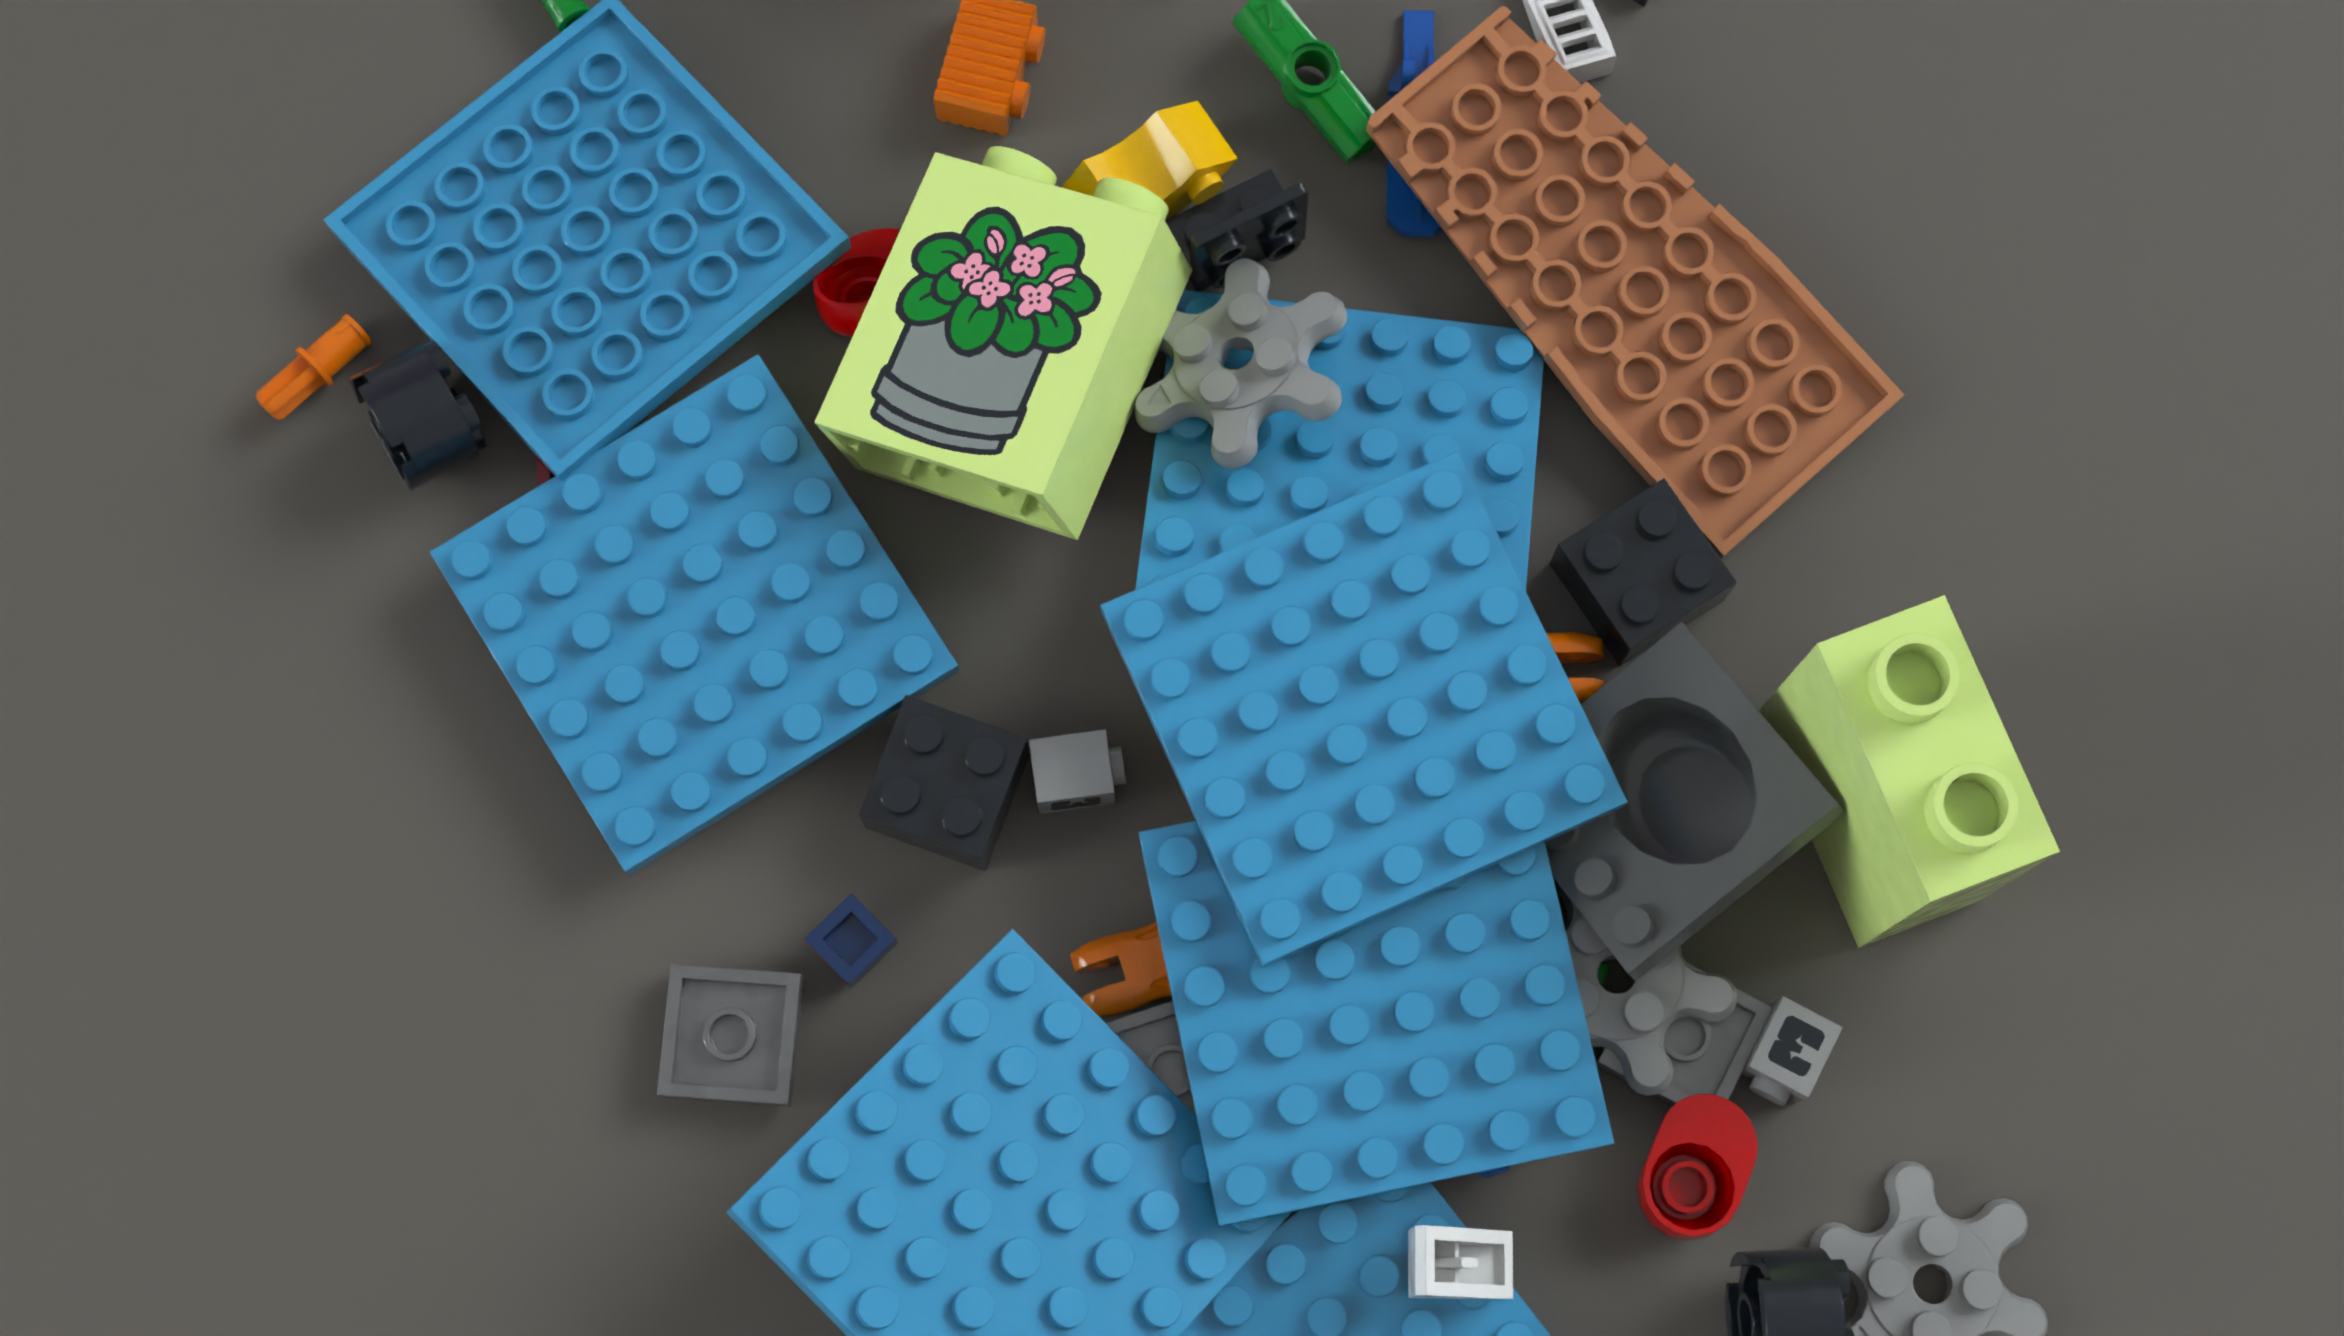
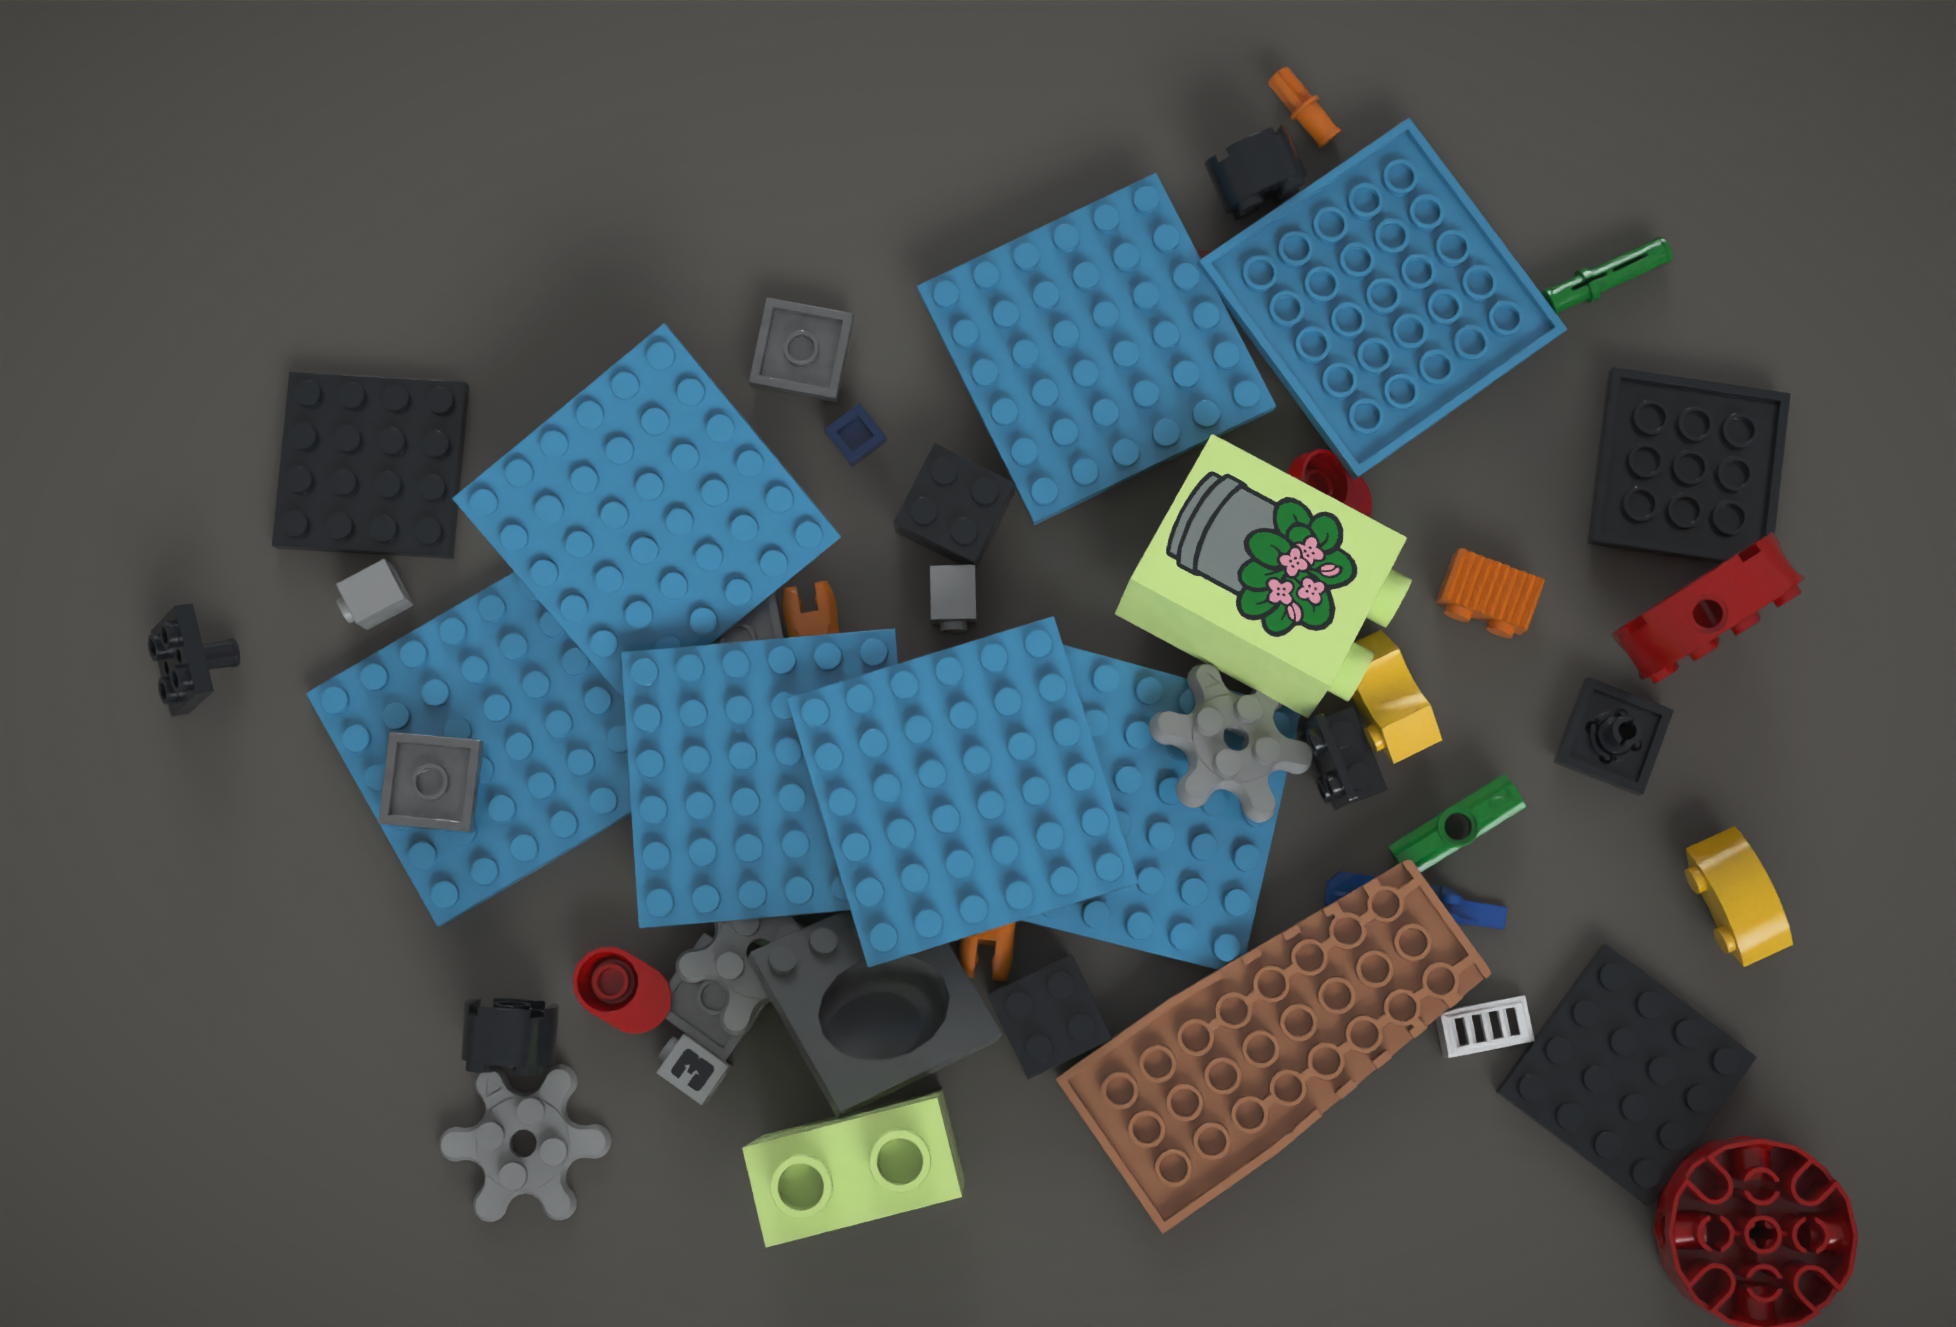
camera: 100 degrees right, 5 degrees up
(1459, 1263) = (576, 813): white slope -> none

